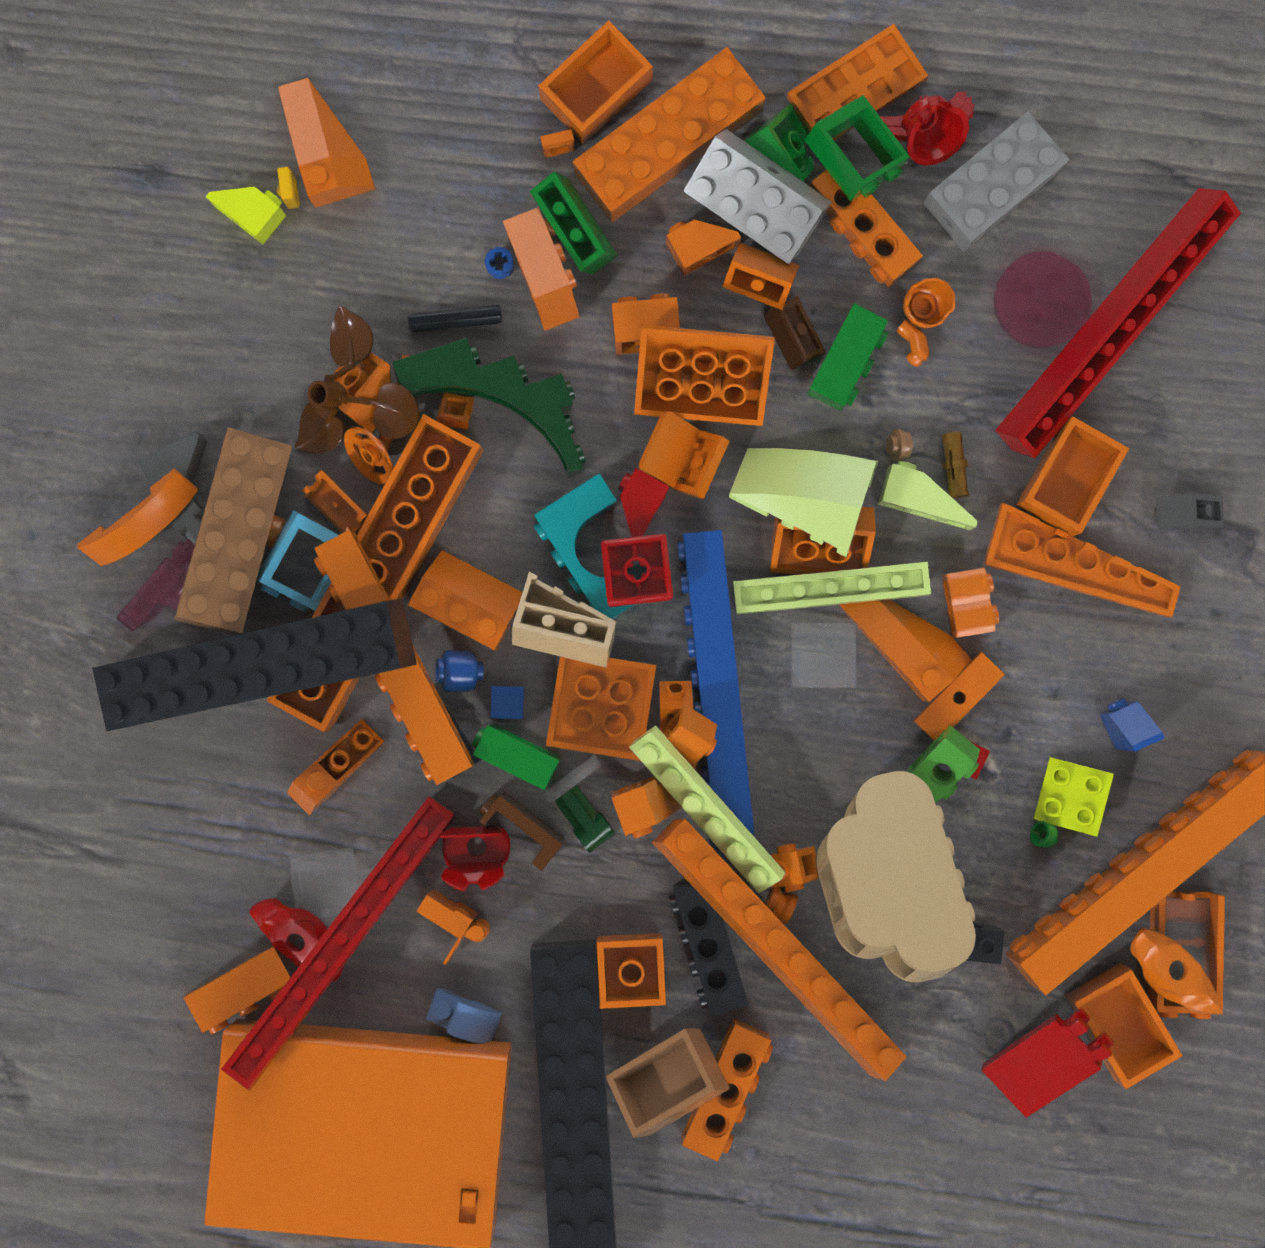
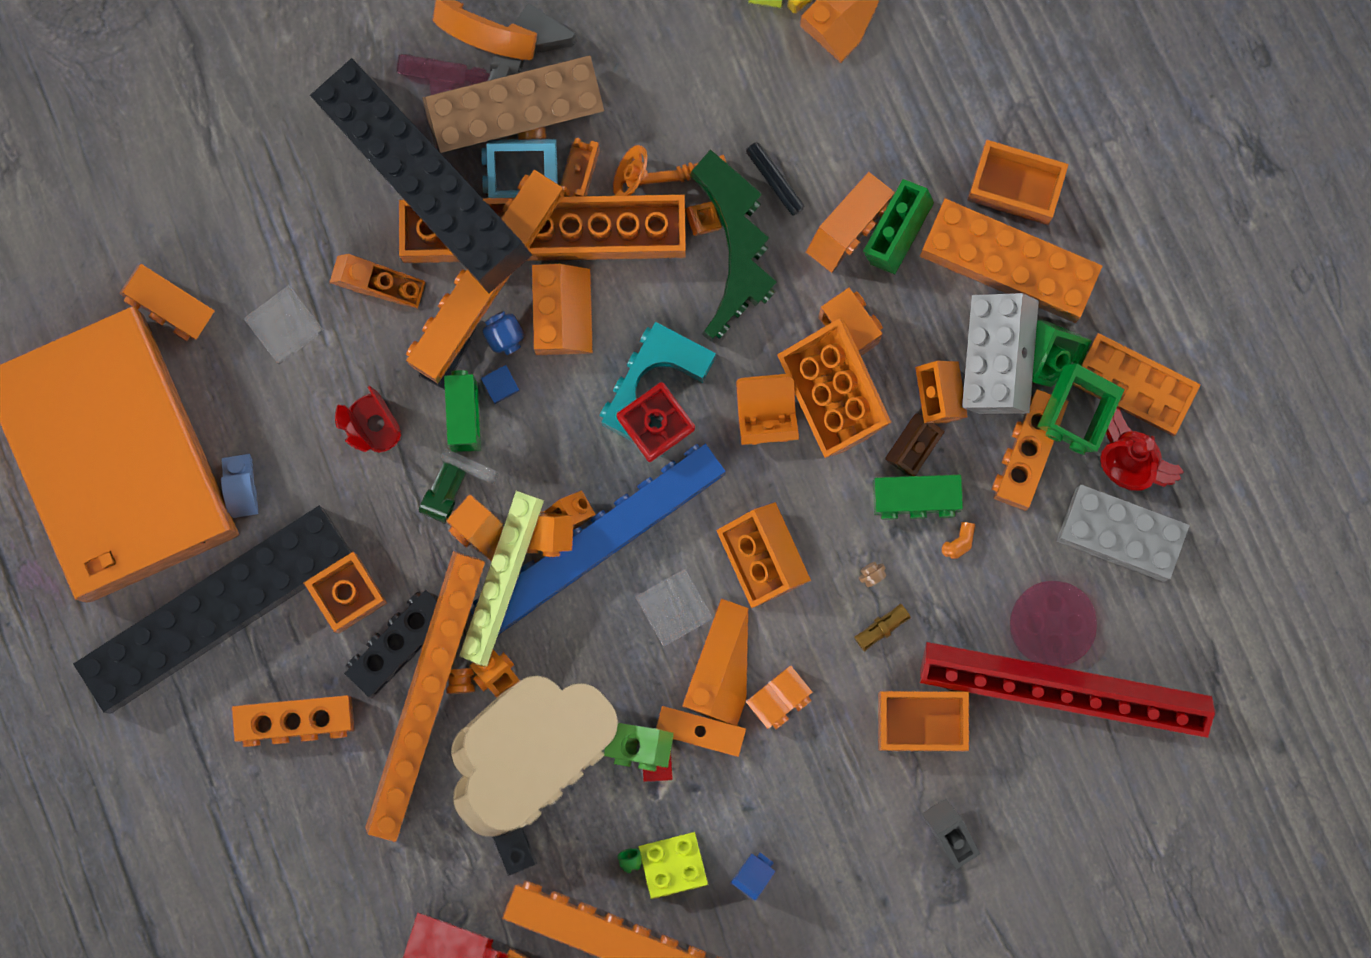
camera: 60 degrees right, 5 degrees down
(280, 921) = (227, 348): red piece -> none
(337, 944) = (246, 356): red plate -> none
(364, 382) = (676, 139): orange slope -> none
(395, 411) = (631, 126): reddish brown plant -> none
(453, 917) = (311, 436): orange piece -> none
(507, 267) = (837, 179): blue bush -> none
(526, 822) = (412, 472): reddish brown panel -> none
(557, 143) = (955, 180): orange tile -> none
(560, 625) = (580, 389): tan wedge -> none
(600, 706) = (538, 454): orange plate -> none
(641, 500) = (713, 398): red slope -> none
(667, 1082) = (274, 666): medium nougat piece -> none
(699, 243) = (940, 331): orange slope -> none
(806, 490) = (793, 519): yellowish green wedge -> none
(832, 588) = (729, 583): yellowish green plate -> none
(919, 495) = (841, 607): yellowish green slope -> none
(929, 302) = (996, 534): orange hair -> none
(1052, 556) = (853, 742): orange wing -> none

